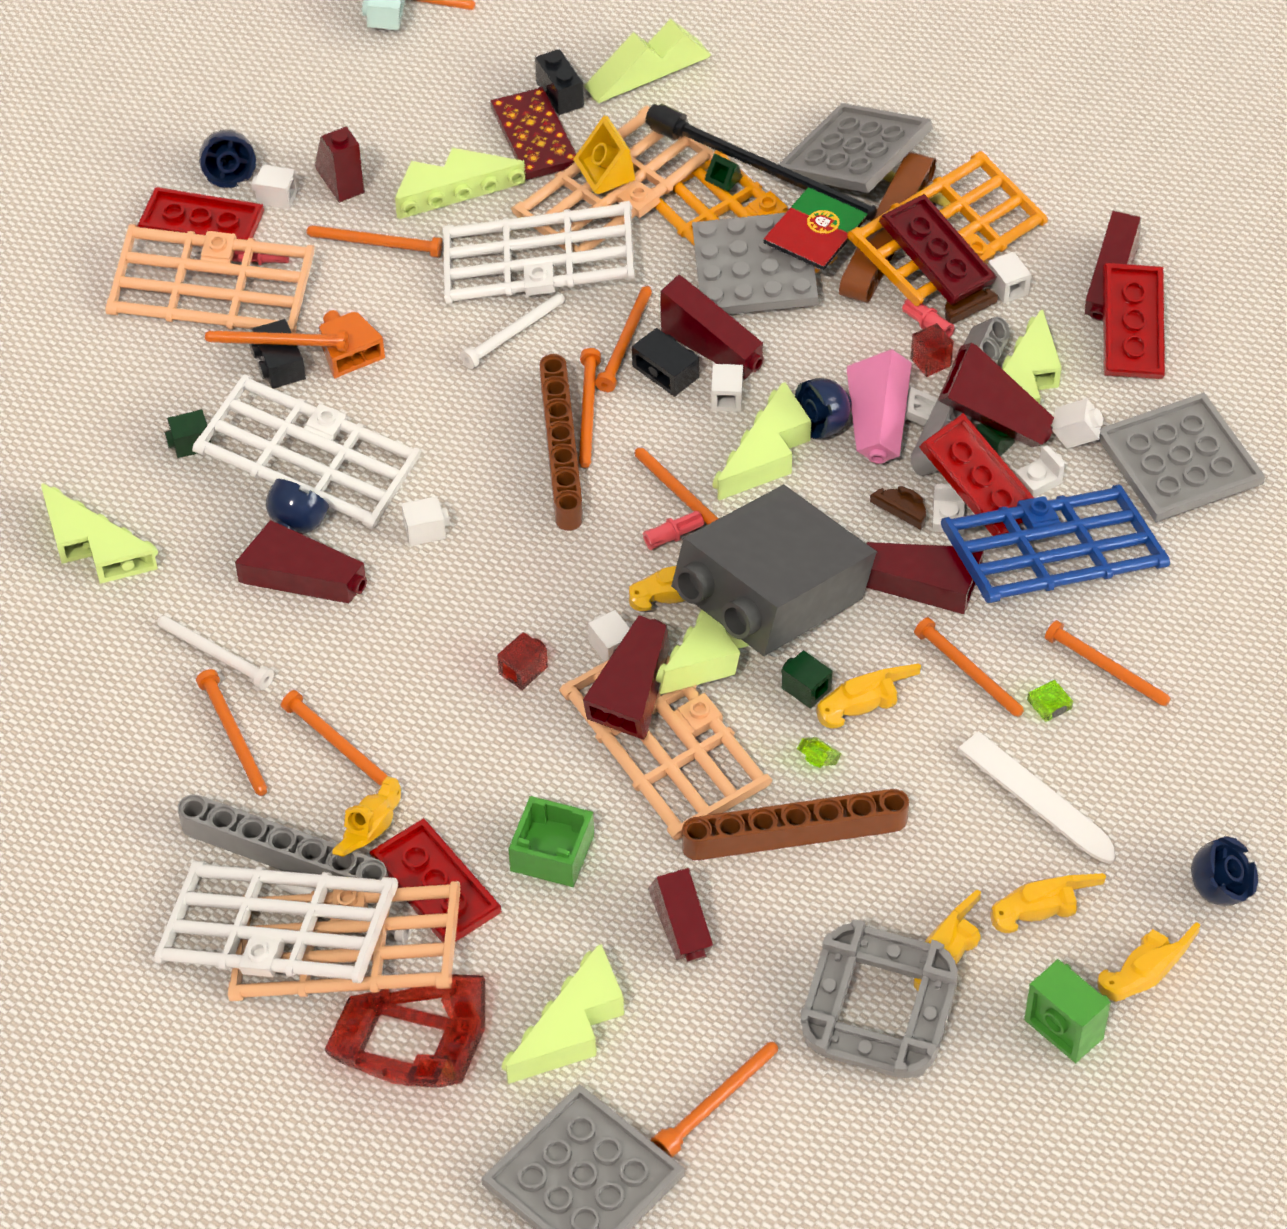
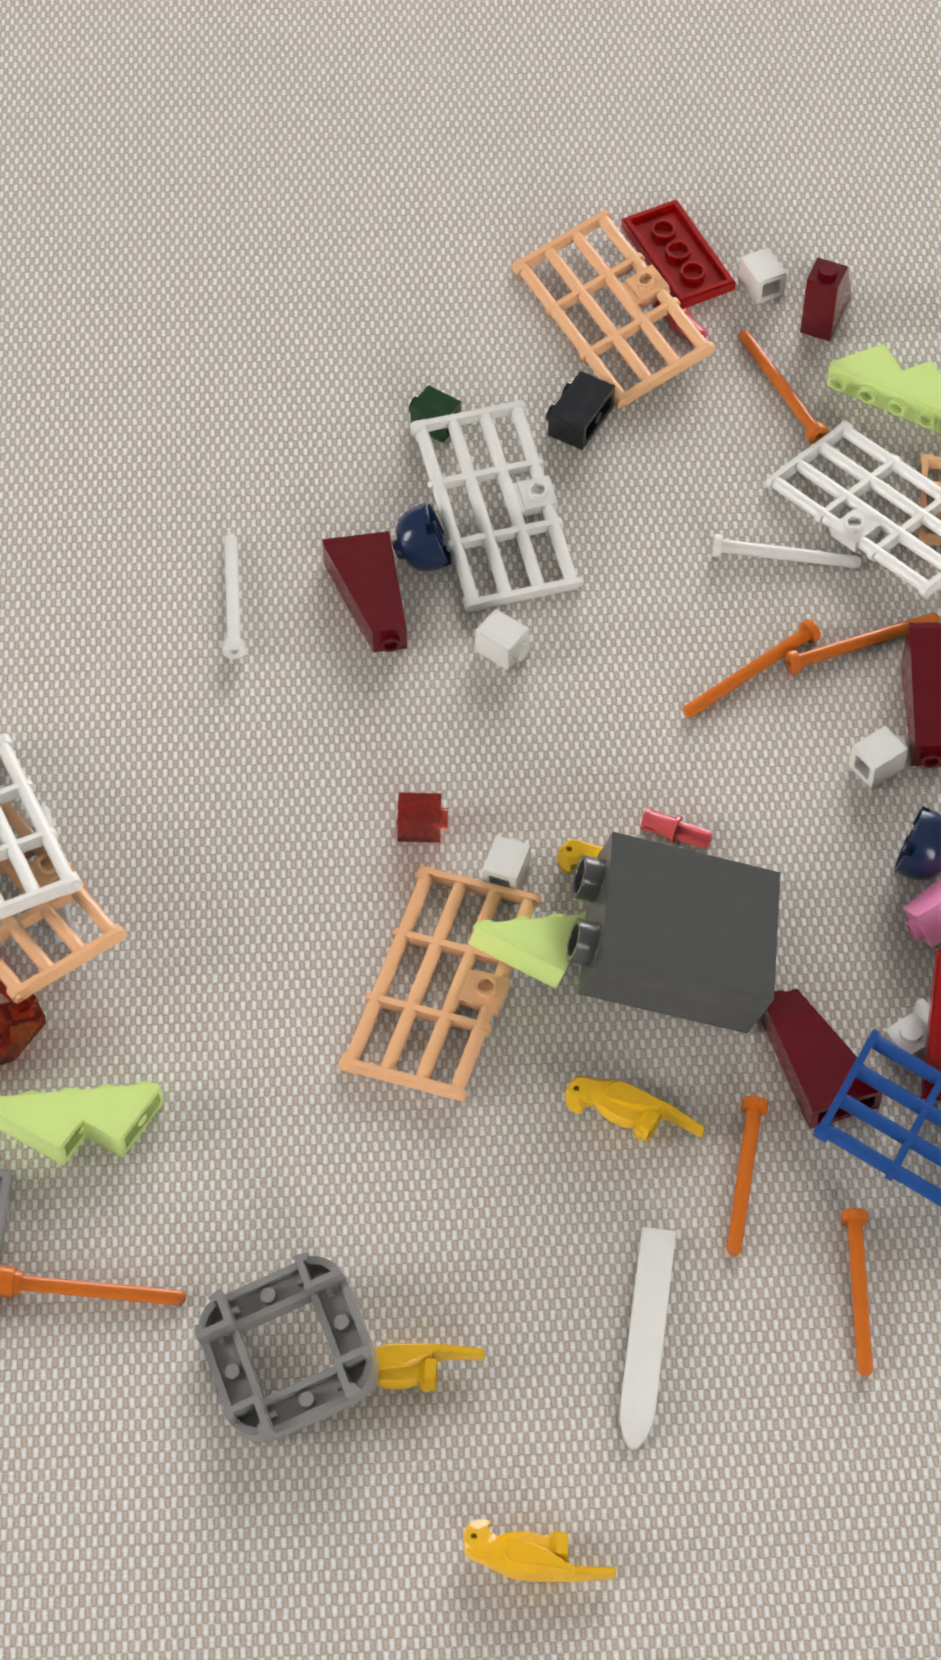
camera: 50 degrees right, 5 degrees up
(87, 534) = (261, 425): yellowish green slope -> none
(208, 681) = (196, 614): orange bar -> none
(227, 158) = (751, 220): dark blue cylinder -> none
(268, 841) = (54, 714): light grey beam -> none
(293, 703) = (227, 687): orange bar -> none
(339, 340) = (623, 438): orange bar -> none
(364, 343) = (641, 448): orange torso -> none
(369, 818) = (147, 823): yellow animal -> none
(424, 859) = (145, 903): red tile -> none
(551, 841) = (244, 973): bright green container -> none
(561, 442) = (704, 661): dark orange beam -> none
(627, 685) = (443, 912): dark red slope -> none
(665, 362) = (860, 690): black brick -> none
(674, 485) = (728, 798): orange bar -> none
(681, 915) = (249, 1127): dark red slope -> none
(765, 449) = (830, 834): yellowish green slope -> none
(780, 832) = (435, 1166): dark orange beam -> none
(806, 679) = (602, 1048): dark green brick -> none
(818, 752) = (529, 1114): clear neon green plate -> none
(901, 503) = (884, 990): reddish brown plate -> none
(1041, 900) = (522, 1412): yellow animal -> none
(1050, 700) = (771, 1269): clear neon green plate -> none
(1067, 1010) = (405, 1516): bright green container -> none
(1223, 872) = (688, 1555): dark blue cylinder -> none

